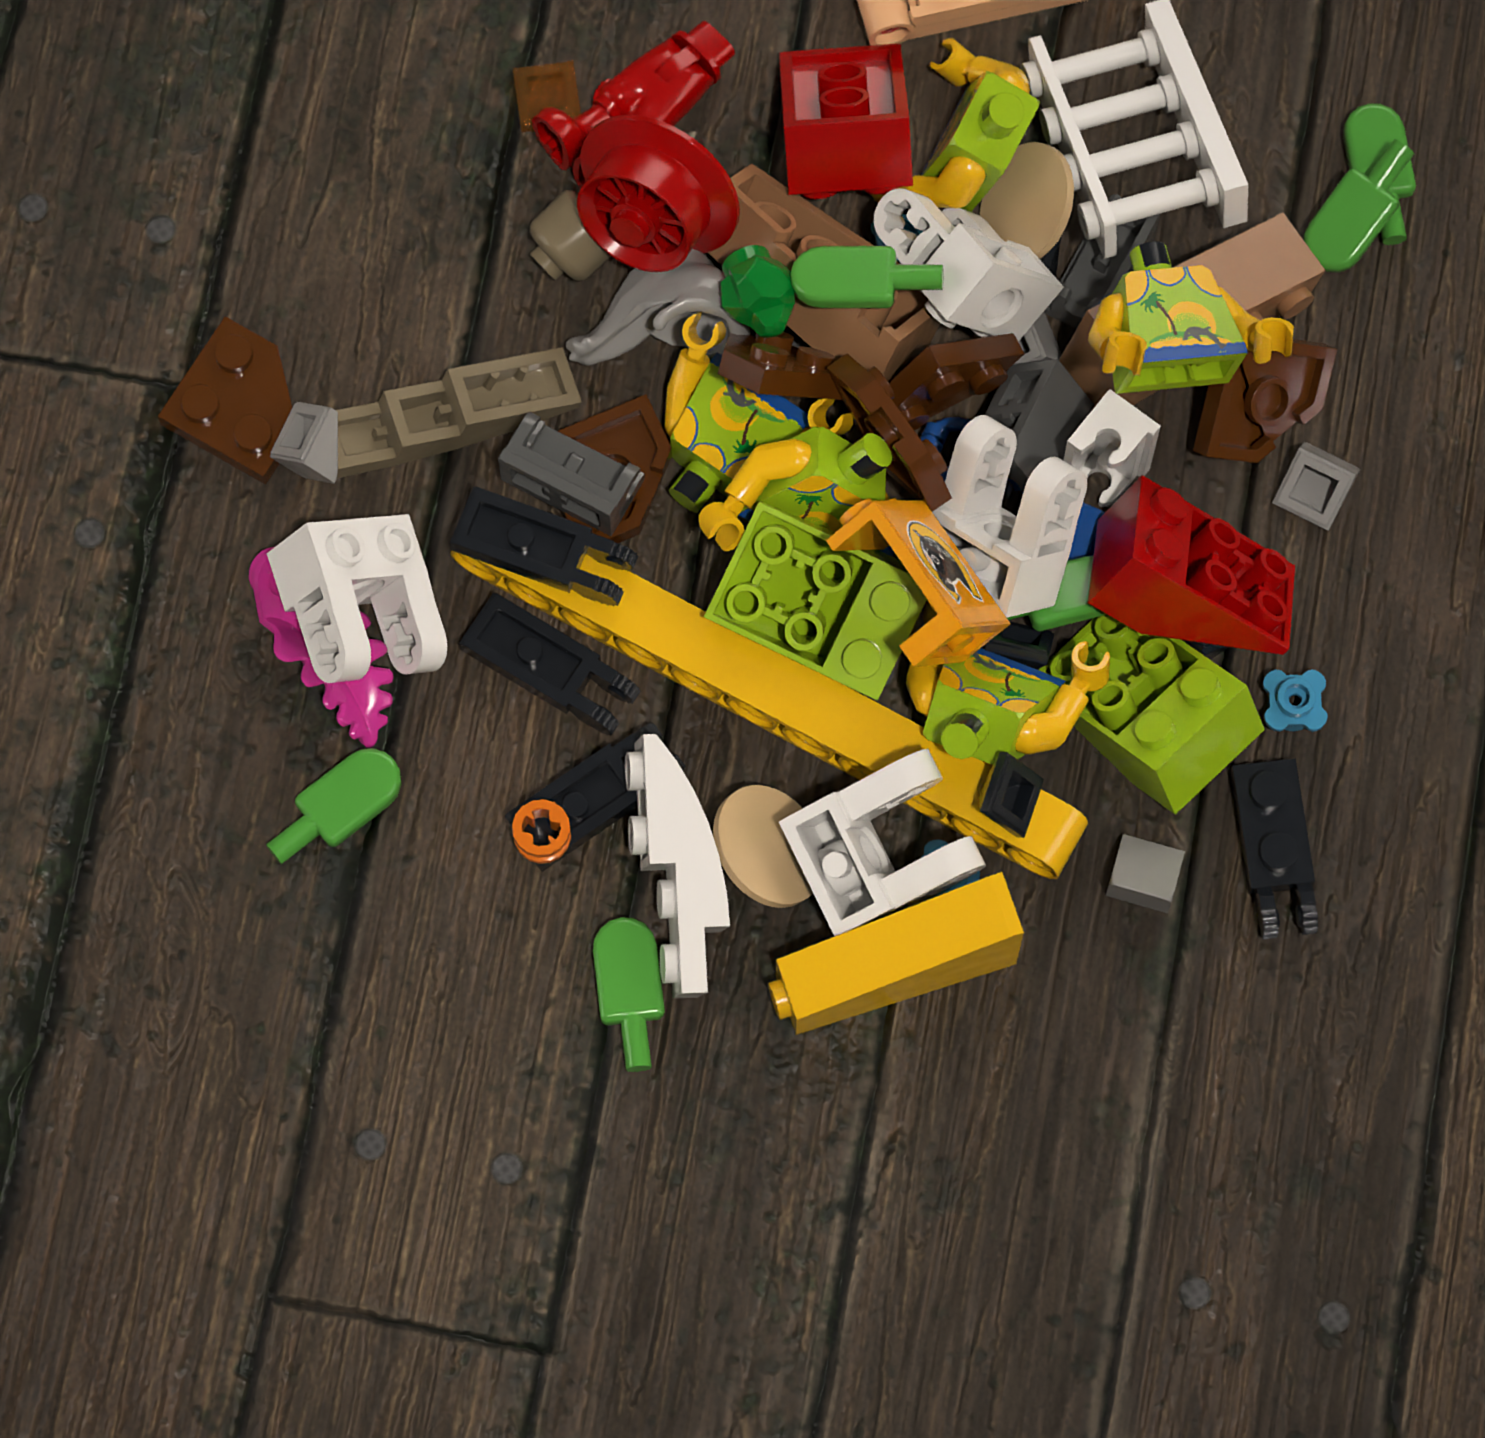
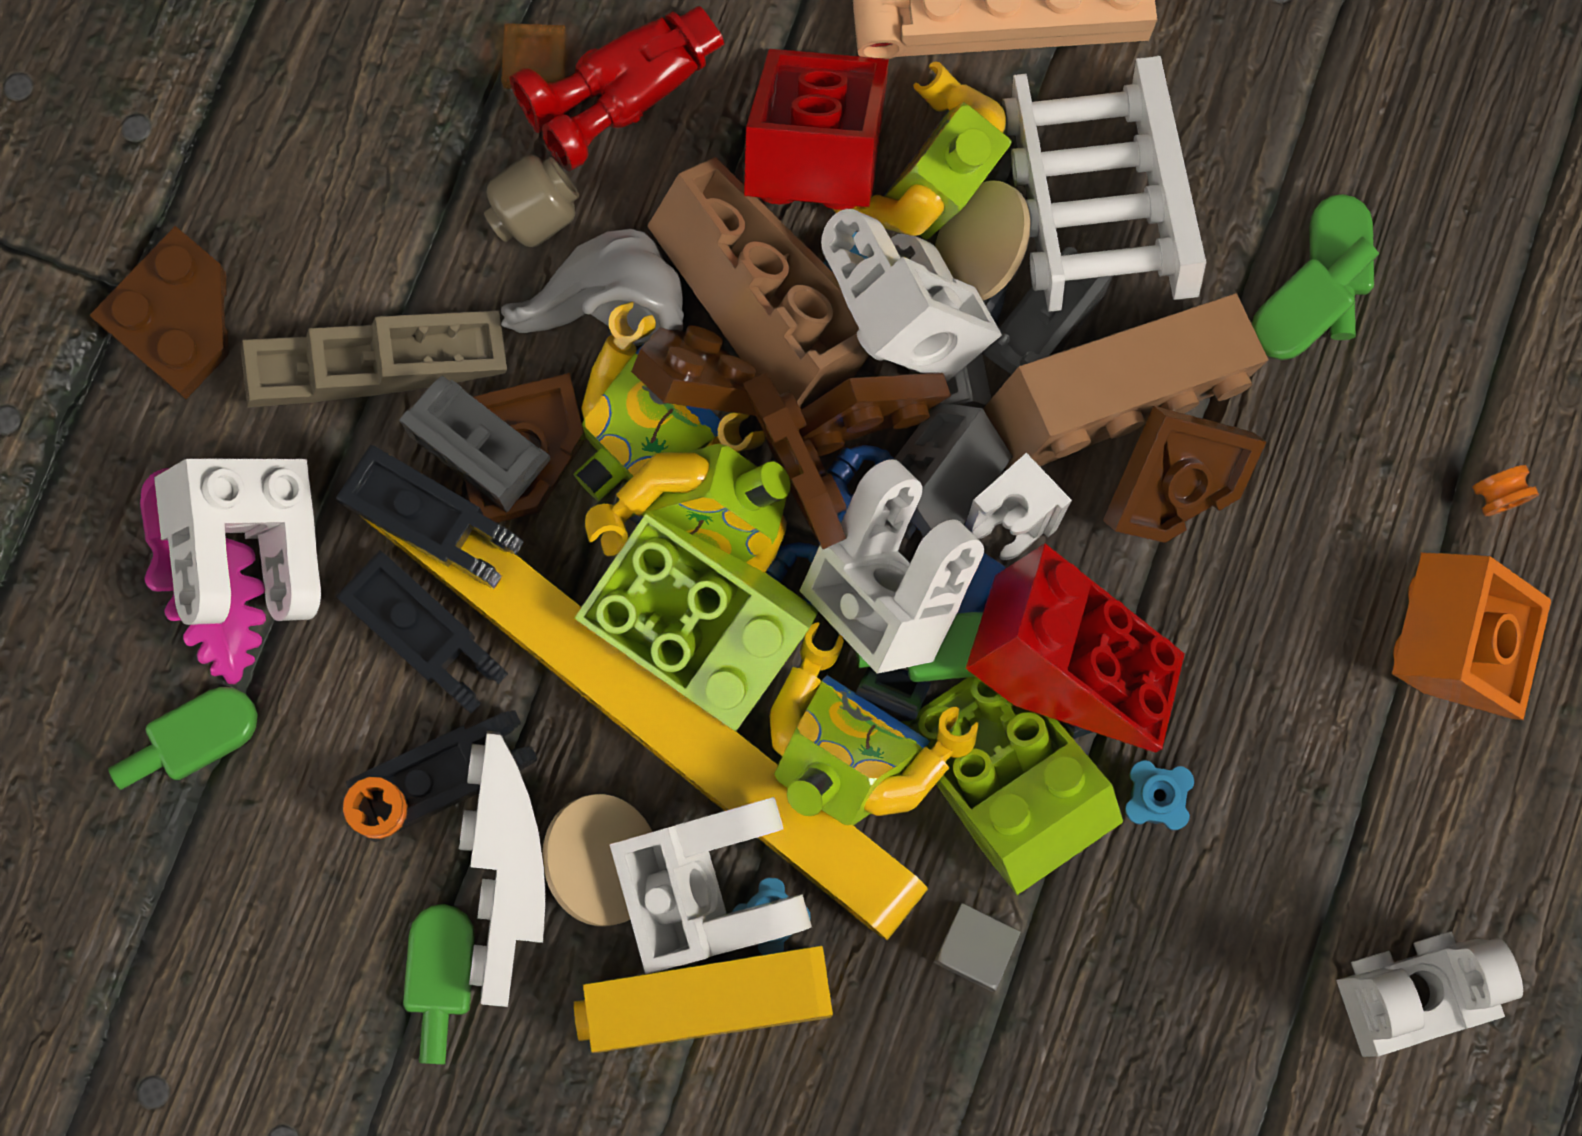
camera: 10 degrees right, 5 degrees up
(309, 442) = (227, 367): light grey slope -> none
(653, 193) = (605, 173): red piece -> none
(757, 290) = (691, 290): green rock -> none
(858, 276) = (791, 295): bright green piece -> none
(964, 608) = (810, 617): light orange panel -> none
(1010, 794) = (849, 855): black slope -> none
(1177, 327) = (1106, 401): torso -> none
(1274, 841) = (1113, 938): black hinge -> none
(1316, 485) = (1220, 574): light grey slope -> none

